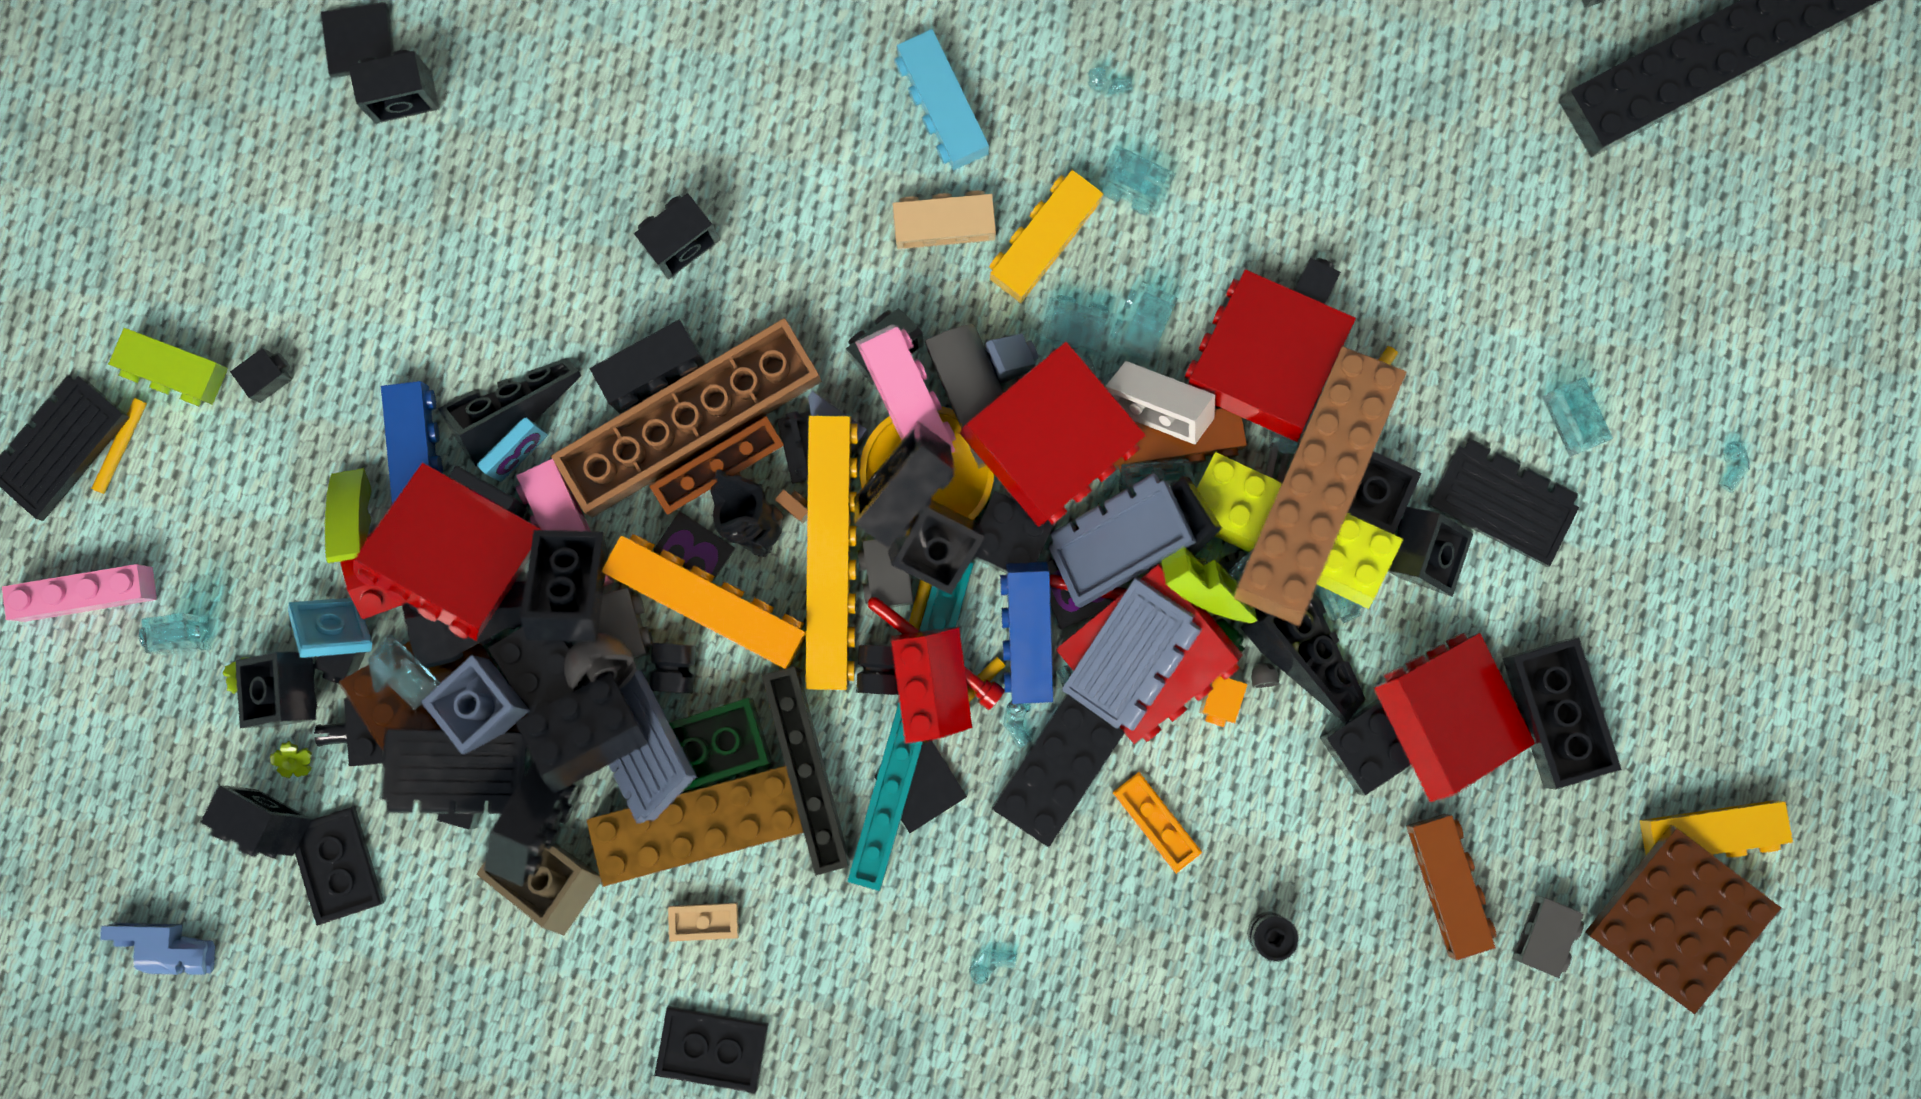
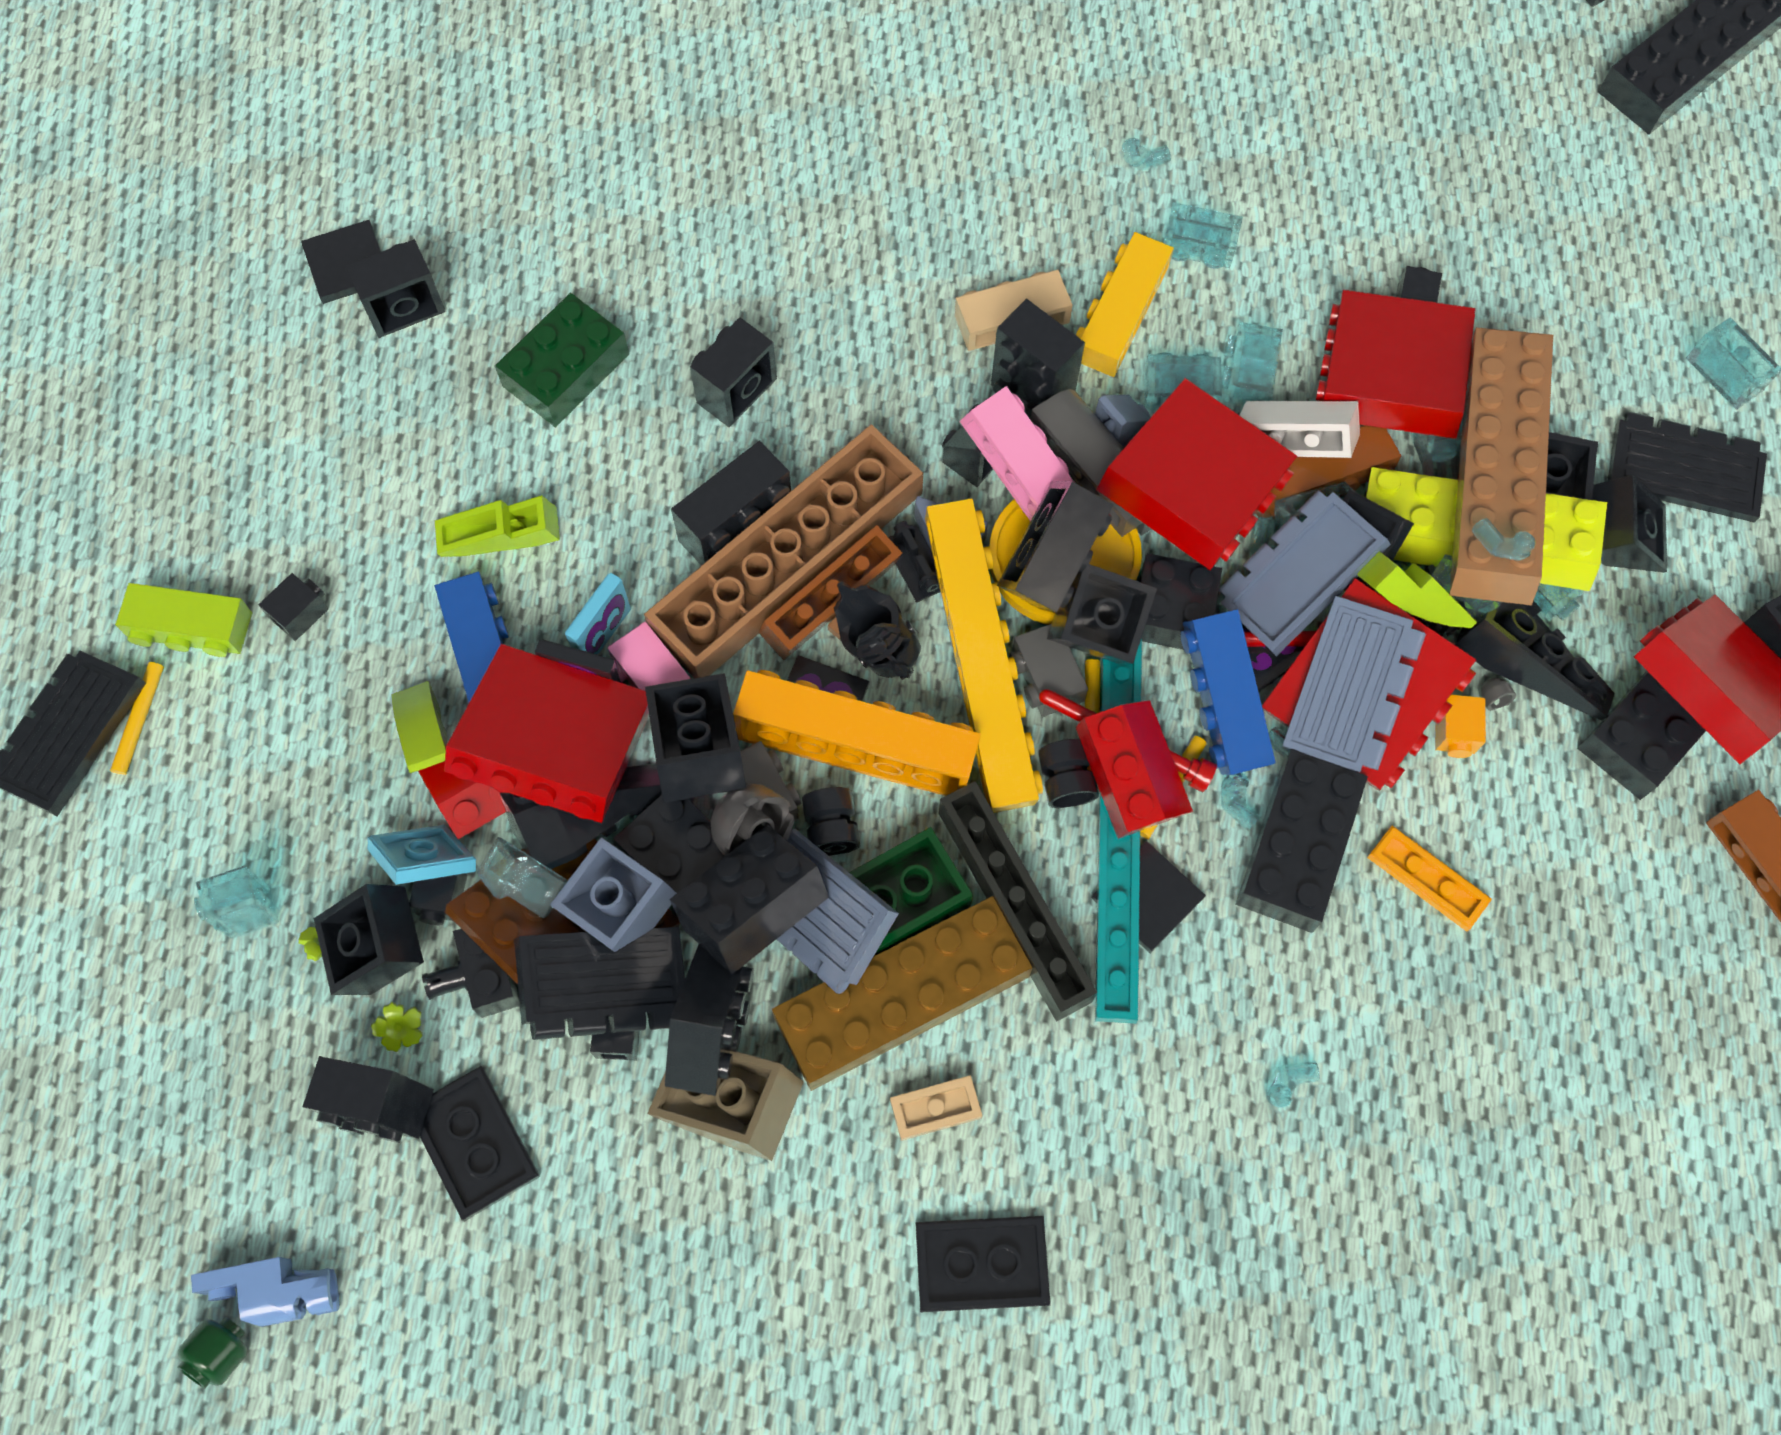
camera: 15 degrees left, 15 degrees down
(79, 593) = (110, 885): bright pink brick -> none
(111, 984) = (212, 1352): none -> dark green head
(446, 337) = (497, 528): none -> lime slope
(485, 420) = (552, 606): black wedge -> none
(531, 186) = (562, 359): none -> dark green brick
(794, 504) = (926, 620): medium nougat plate -> none
(941, 99) = (979, 200): medium azure brick -> none
(942, 290) = (1035, 356): none -> black brick
(1273, 936) = (1606, 971): black wheel -> none
(1276, 581) = (1501, 546): none -> clear light blue arm

